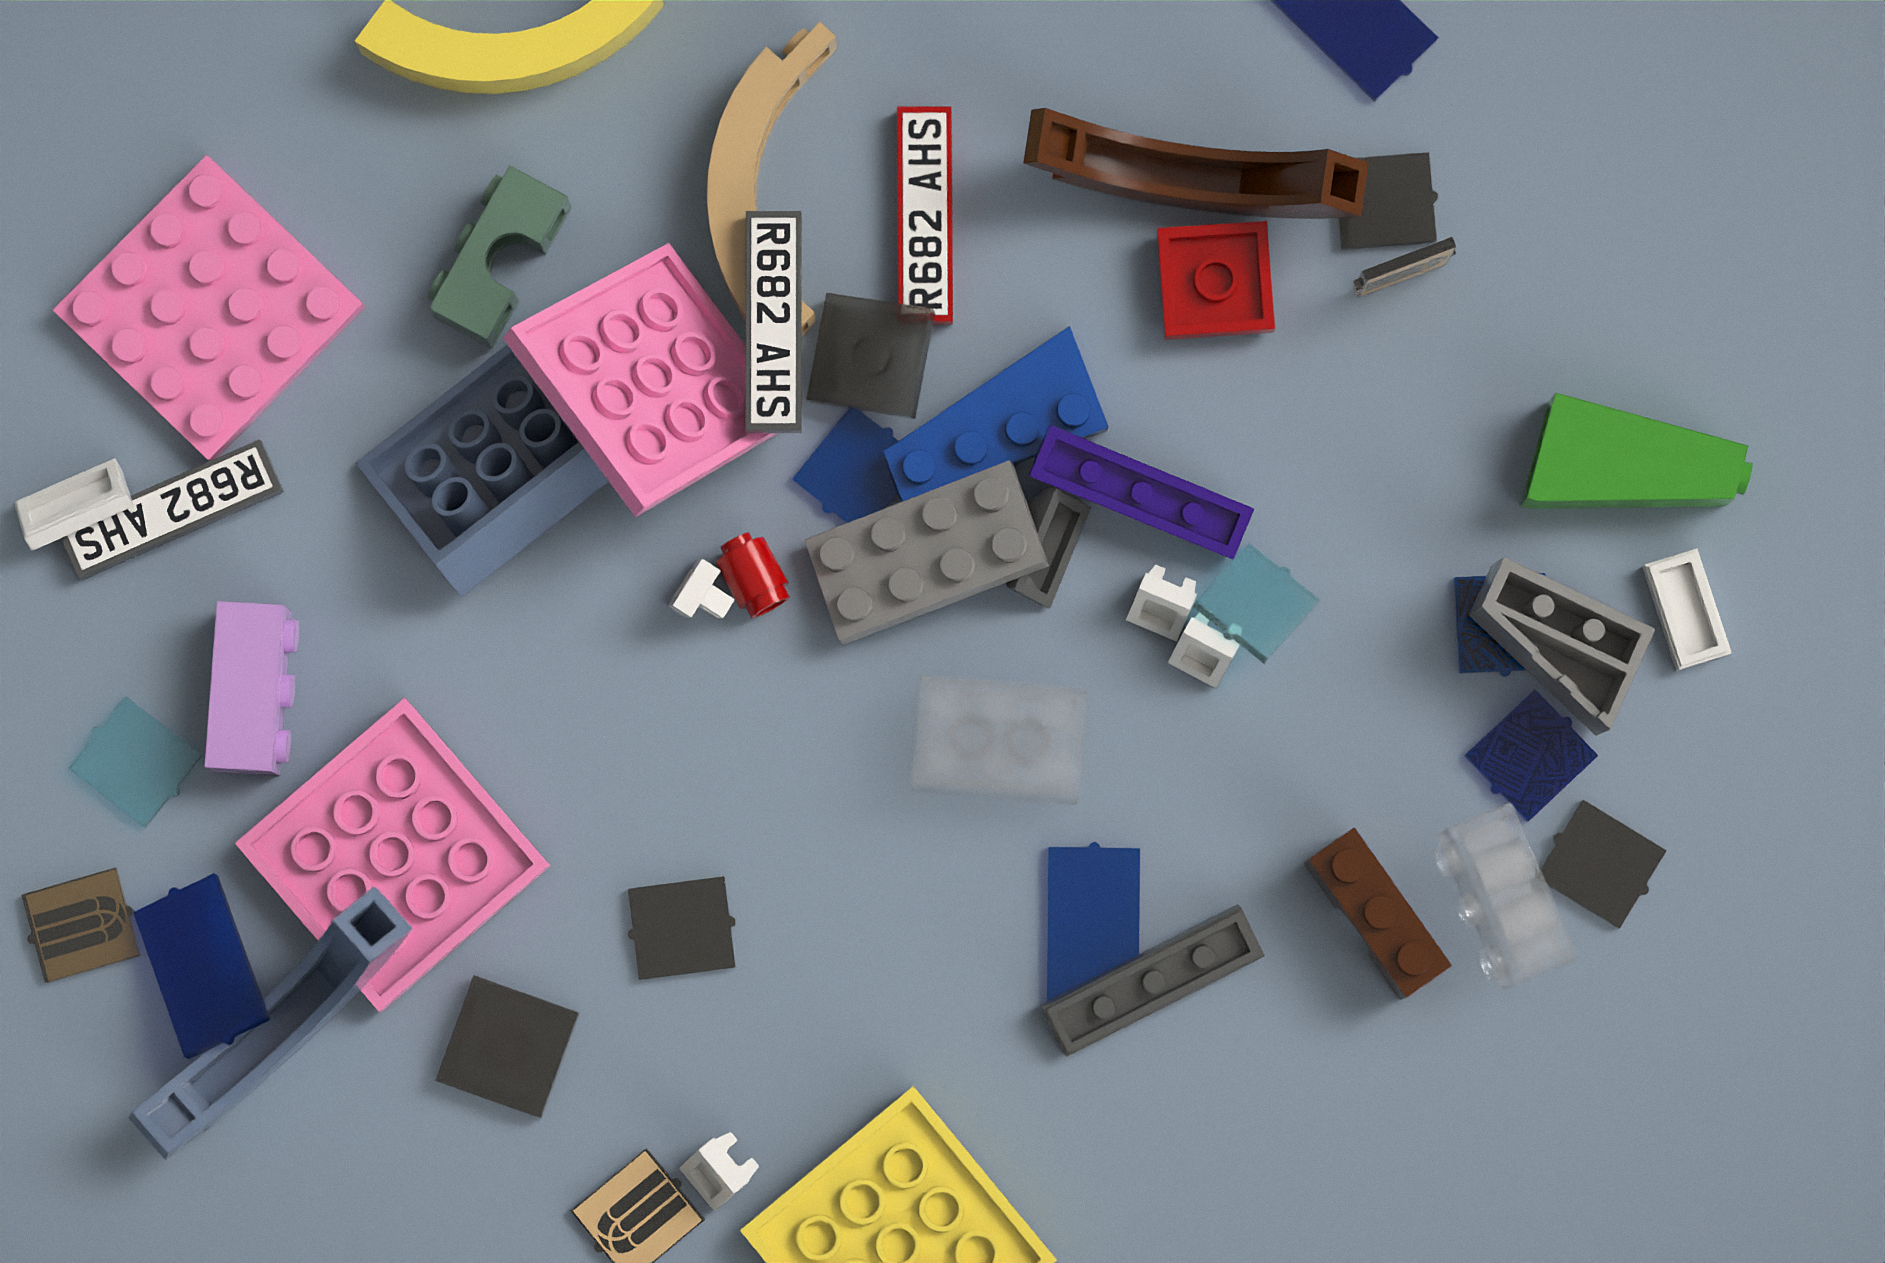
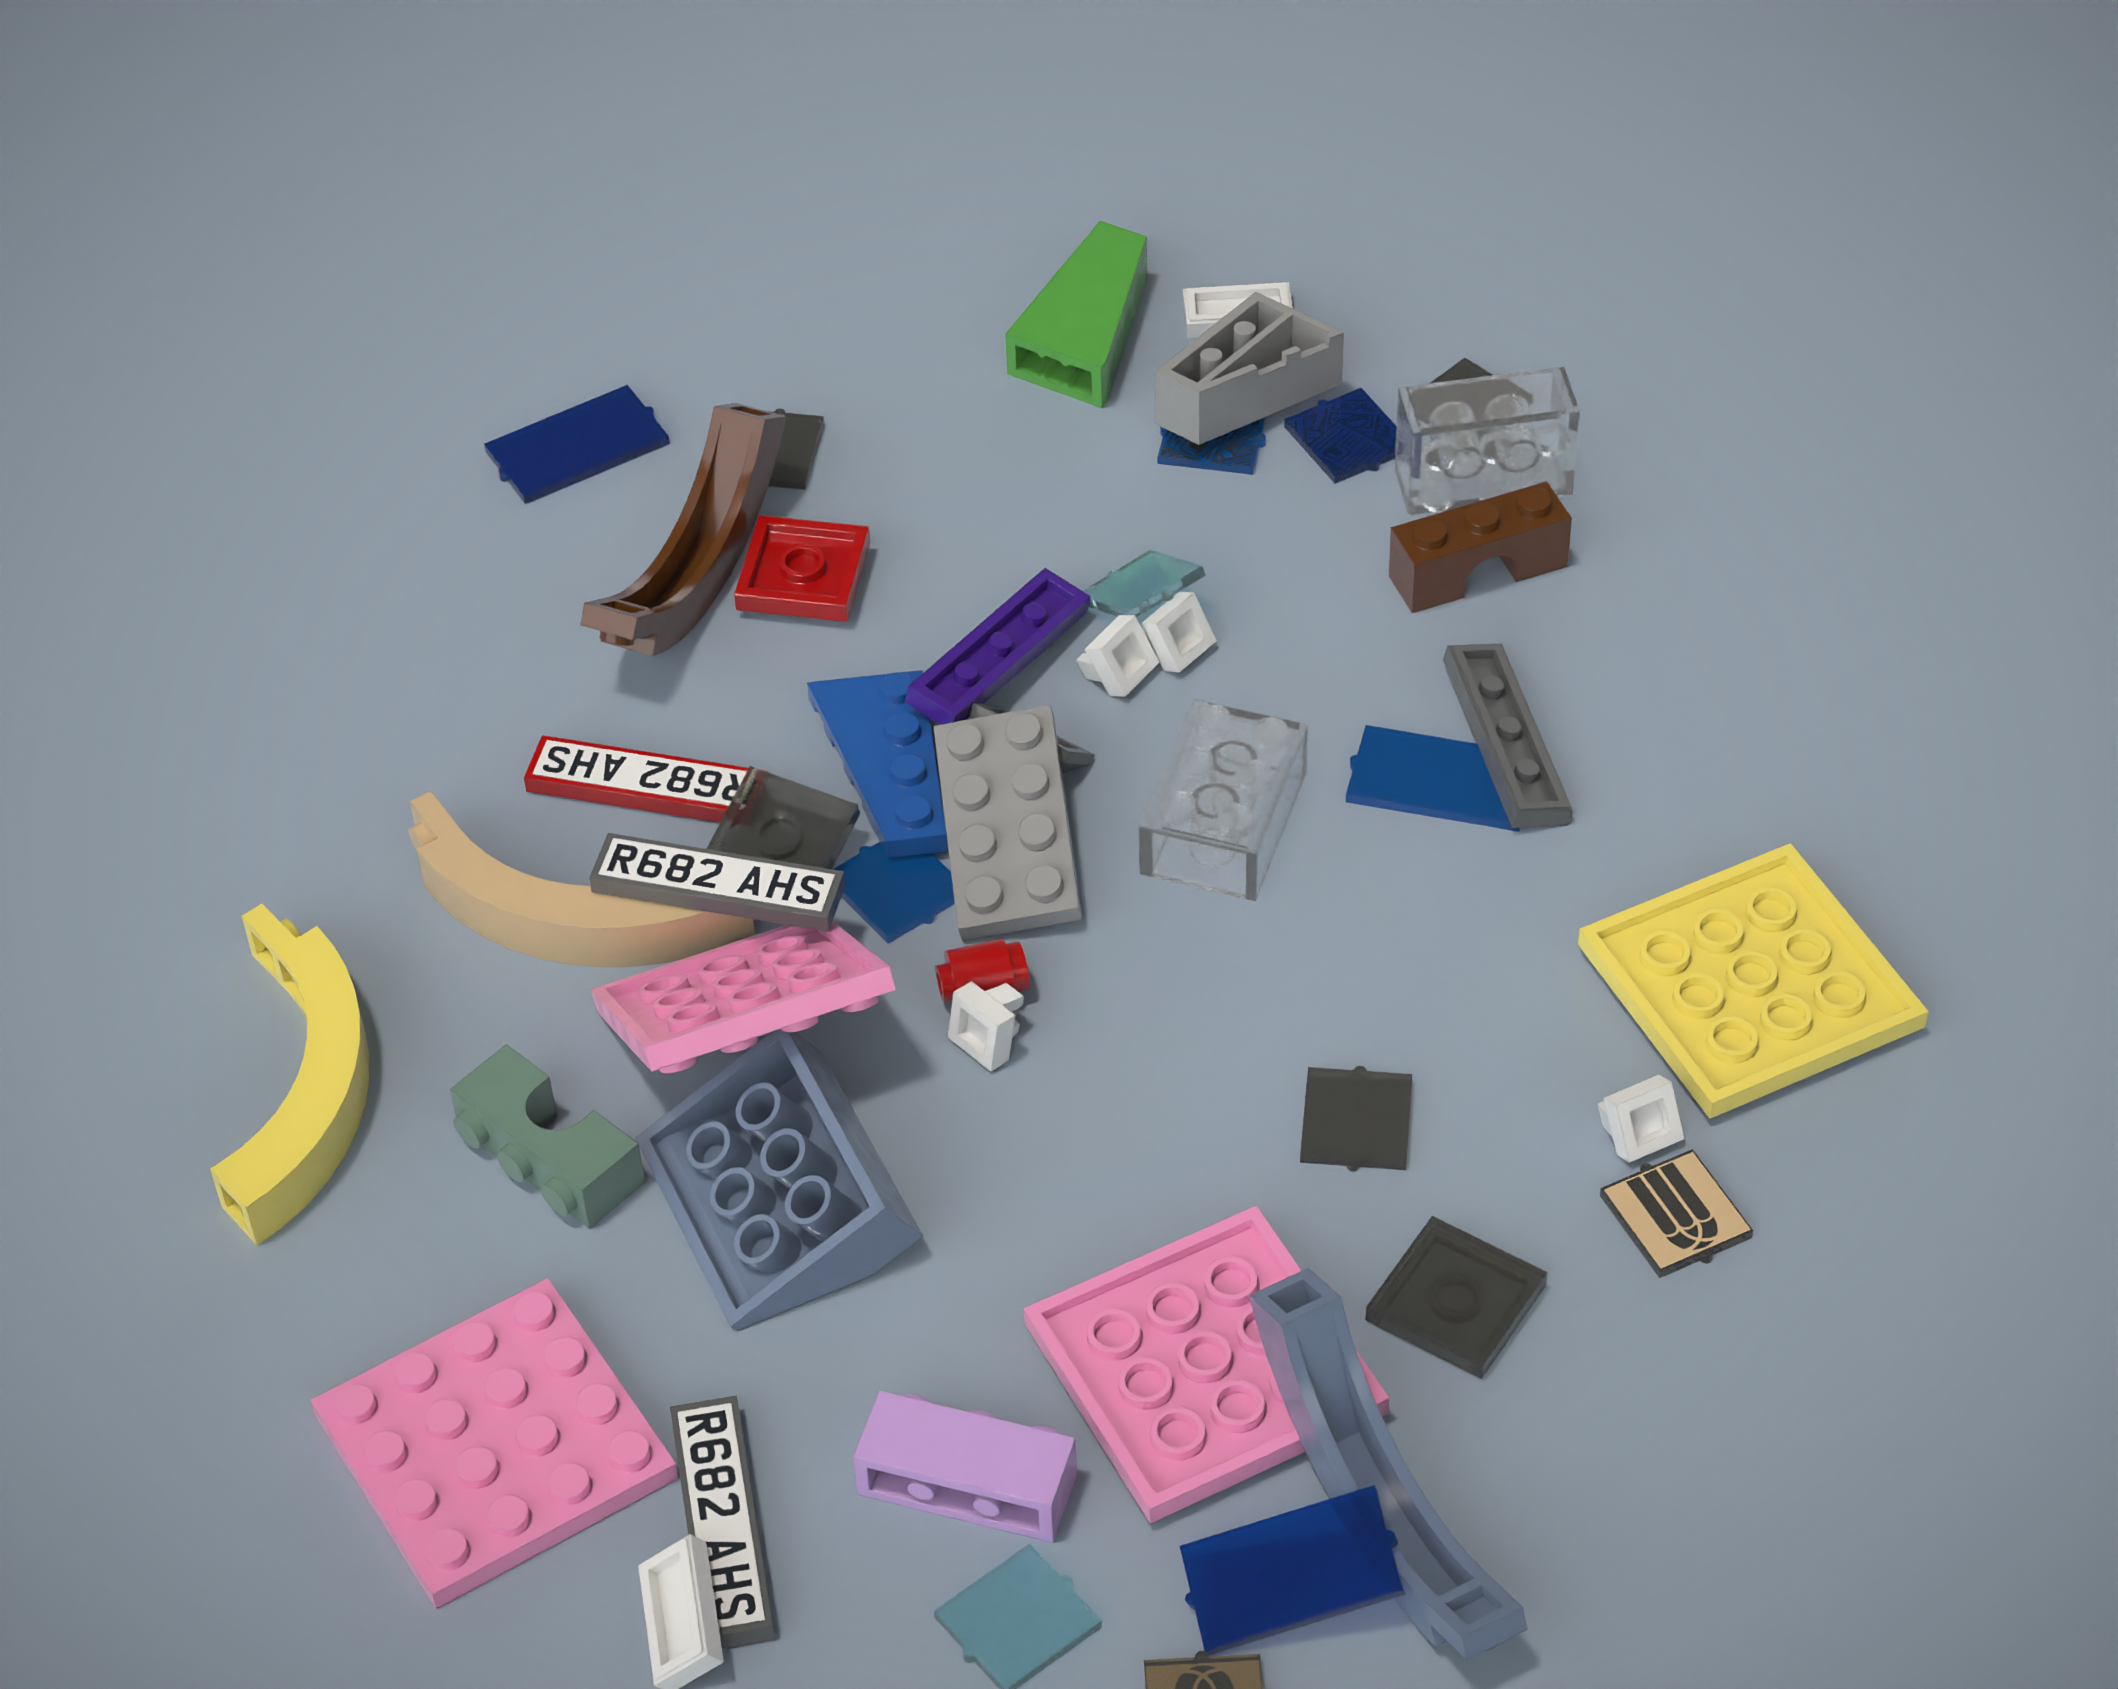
camera: 75 degrees left, 35 degrees down
(1404, 267) = (844, 420): clear smoke piece -> none

